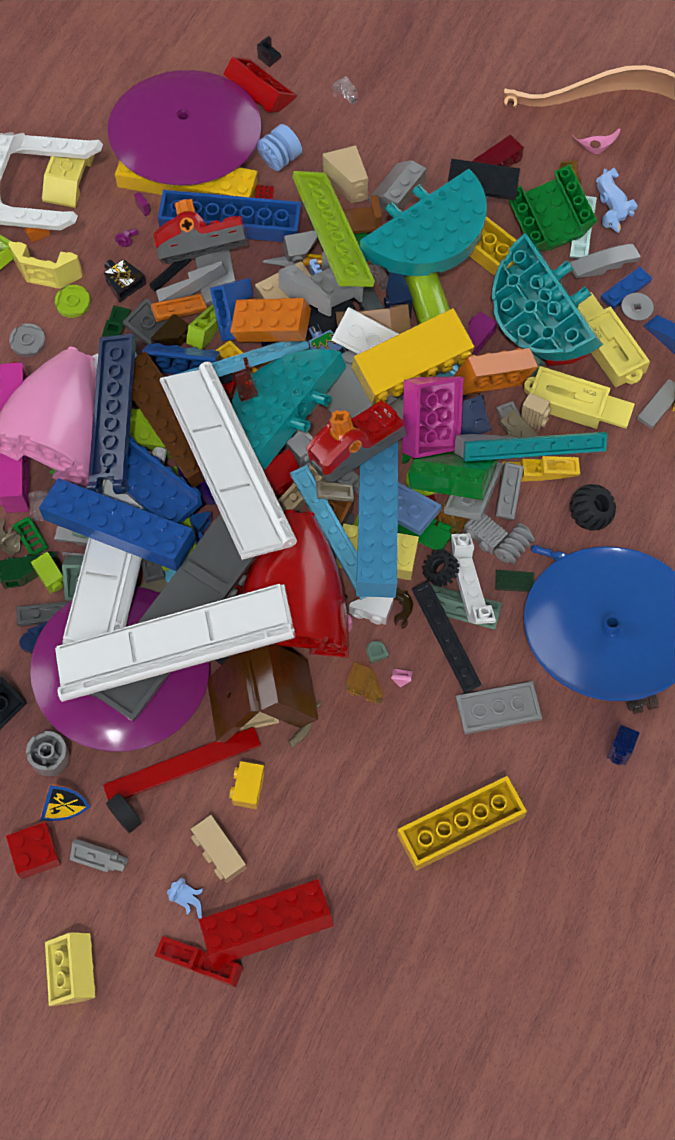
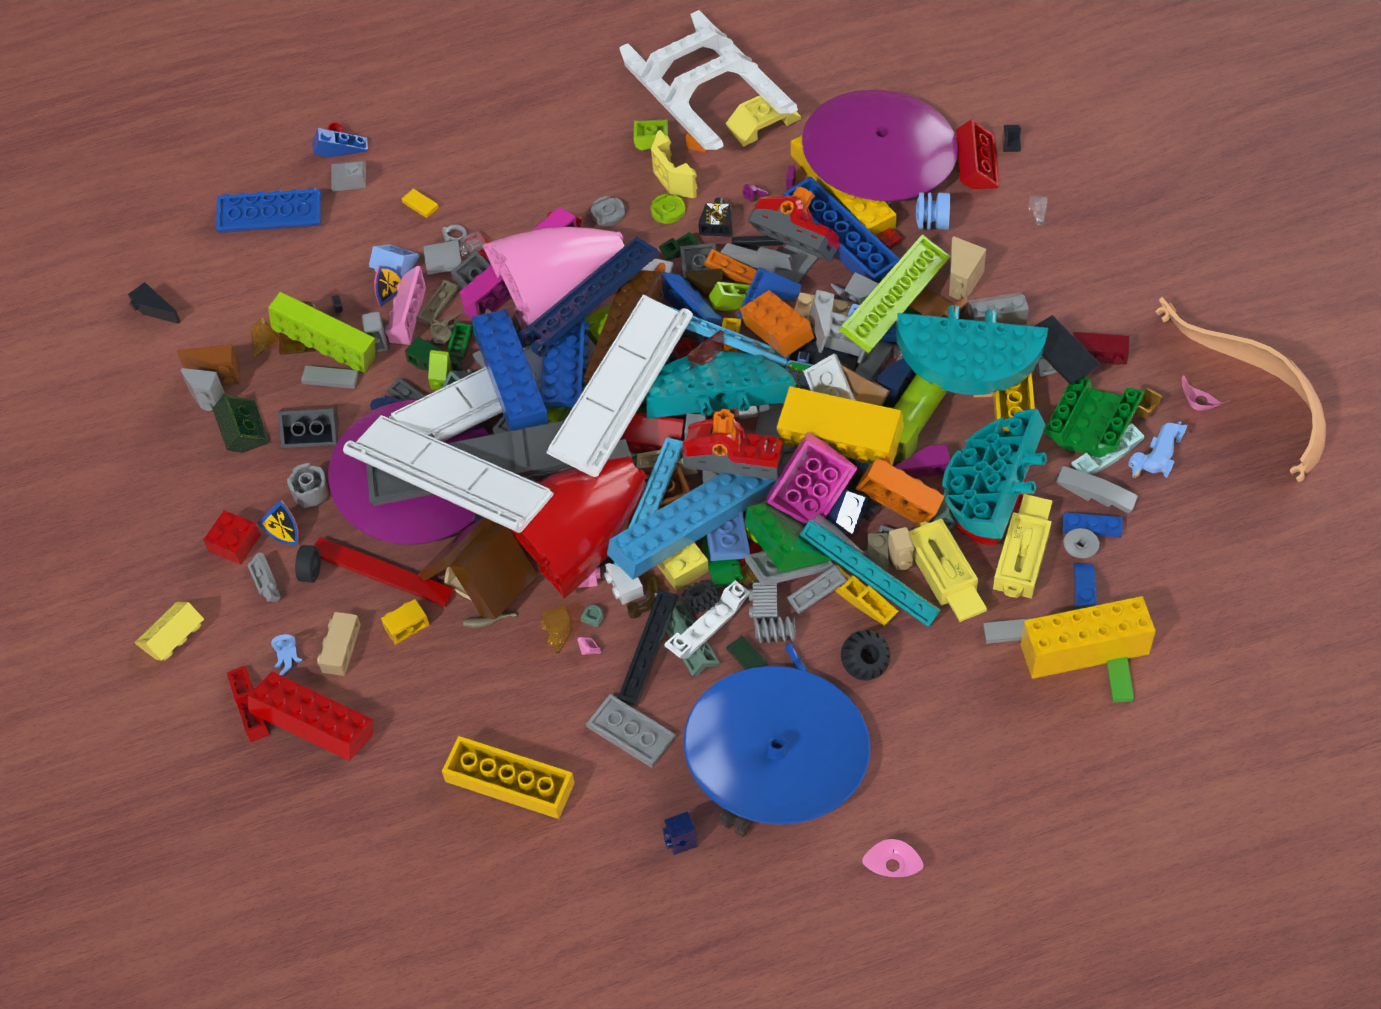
camera: 50 degrees right, 10 degrees down
(334, 491) = (681, 475): dark tan tile -> none

